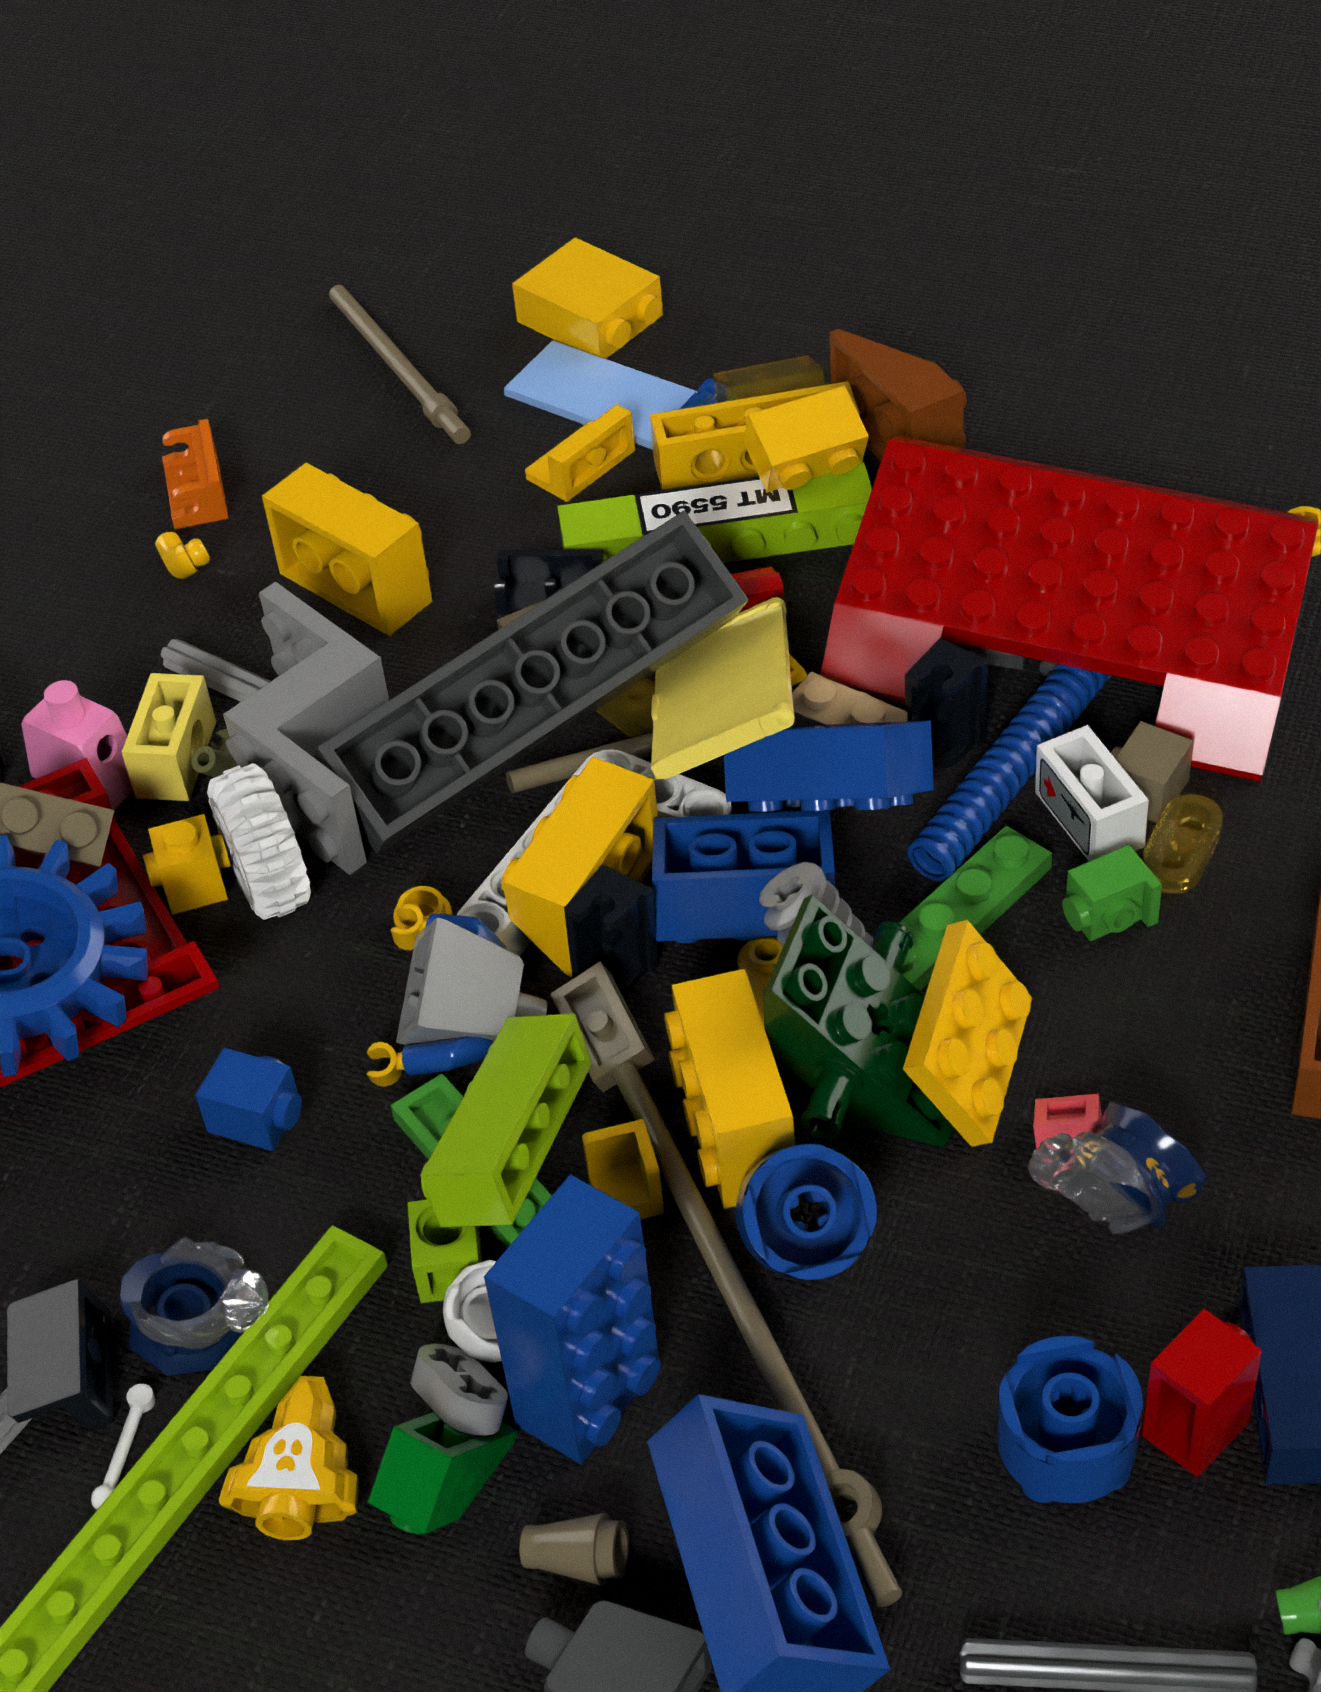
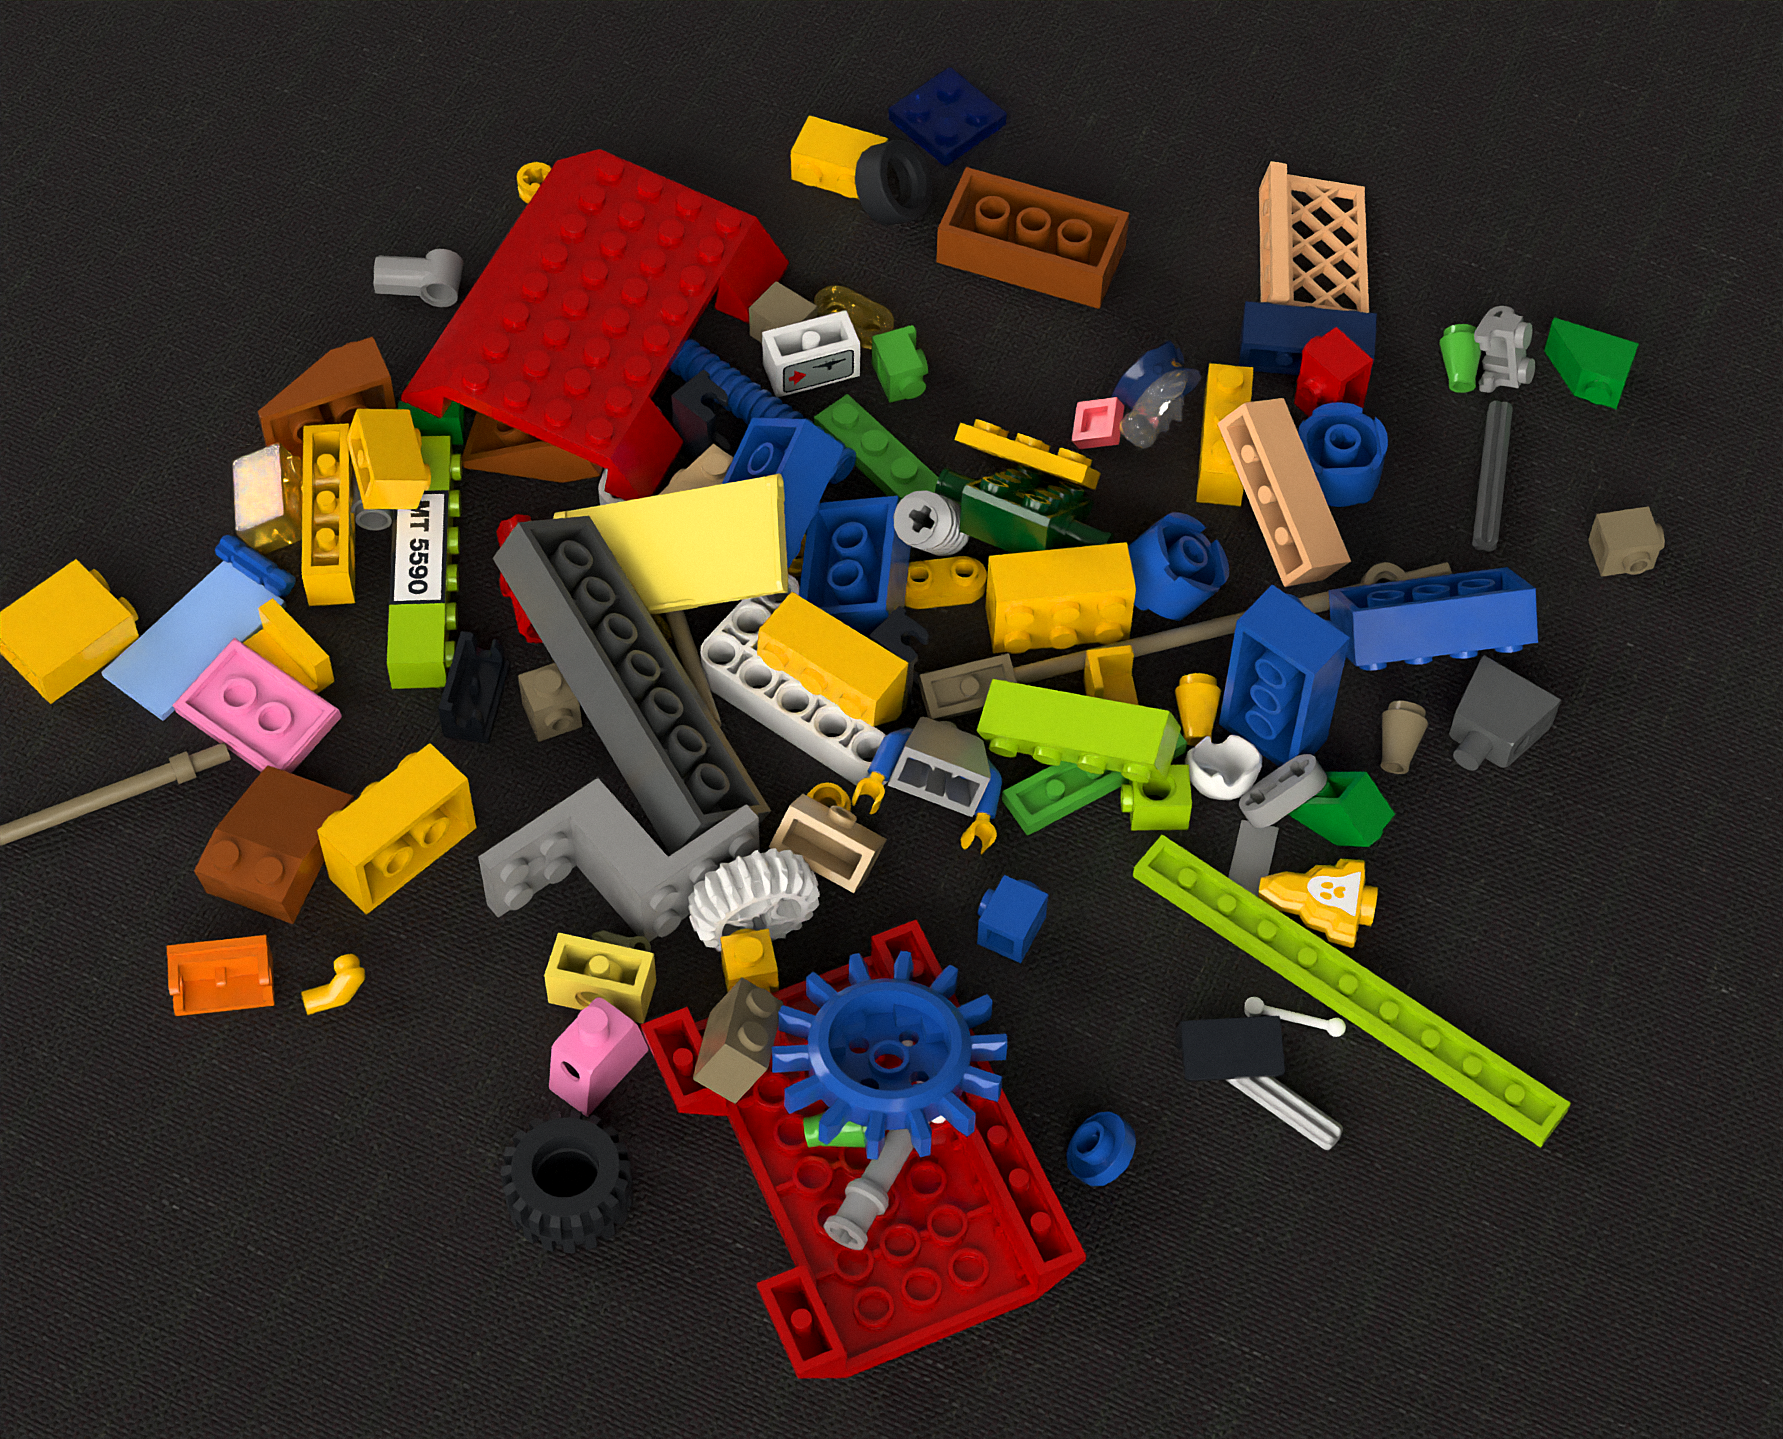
camera: 90 degrees left, 10 degrees up
(190, 1305) = (1194, 958): piece -> none
(218, 673) = (511, 949): light grey axle -> none
(345, 902) = (829, 841): none -> tan brick
(355, 455) = (270, 844): none -> dark orange slope
(368, 1381) = (1252, 855): none -> light grey sticker
(510, 447) = (256, 709): none -> bright pink tile
(958, 1331) = (1284, 492): none -> light nougat brick
(1082, 1272) = (1224, 392): none -> yellow brick
(1120, 448) = (431, 278): none -> light grey piece

